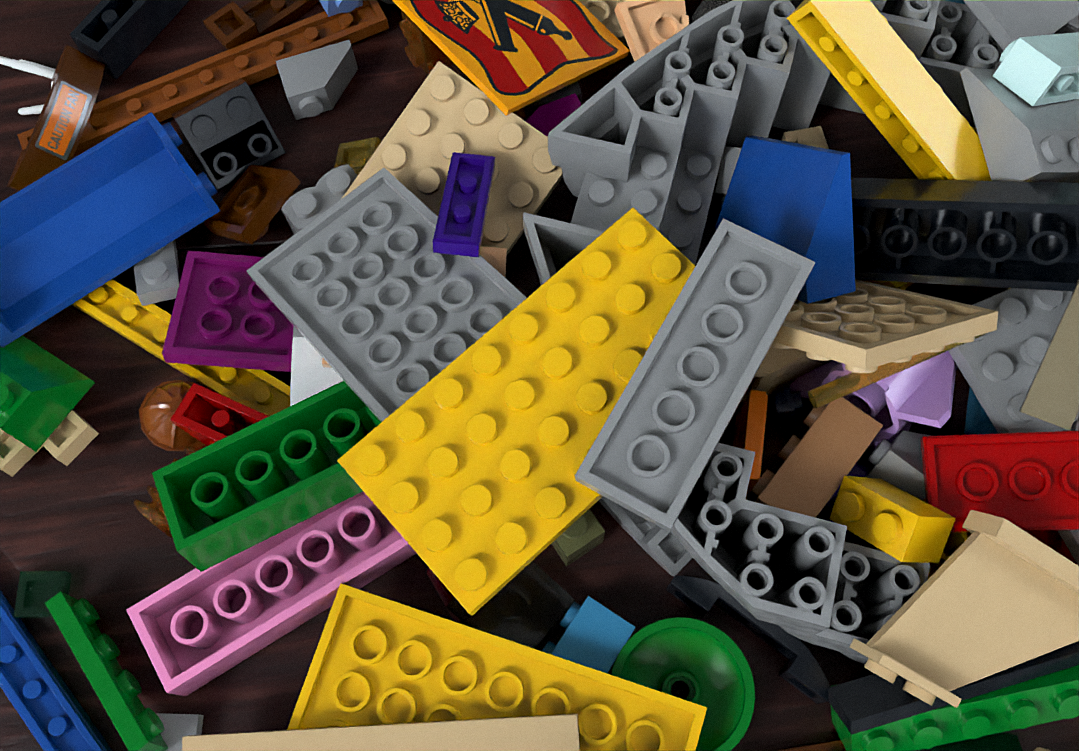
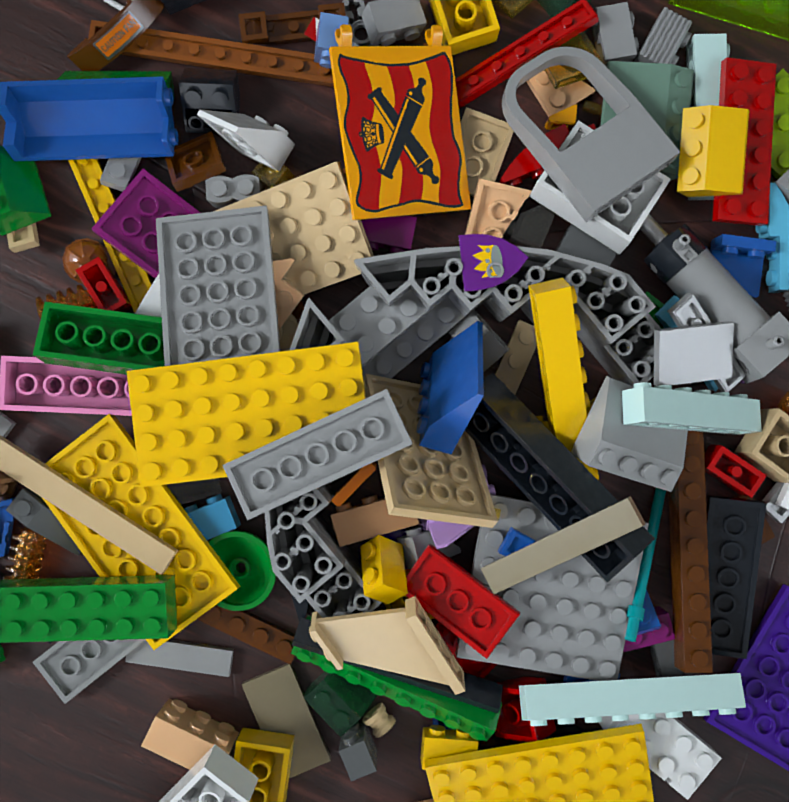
camera: 30 degrees right, 20 degrees up
(305, 123) = (251, 136): none -> white slope
(317, 78) = (281, 99): light grey slope -> none
(464, 205) = (289, 263): dark purple tile -> none
(697, 32) = (482, 249): none -> dark purple sticker
(1028, 349) = (514, 541): none -> blue tile

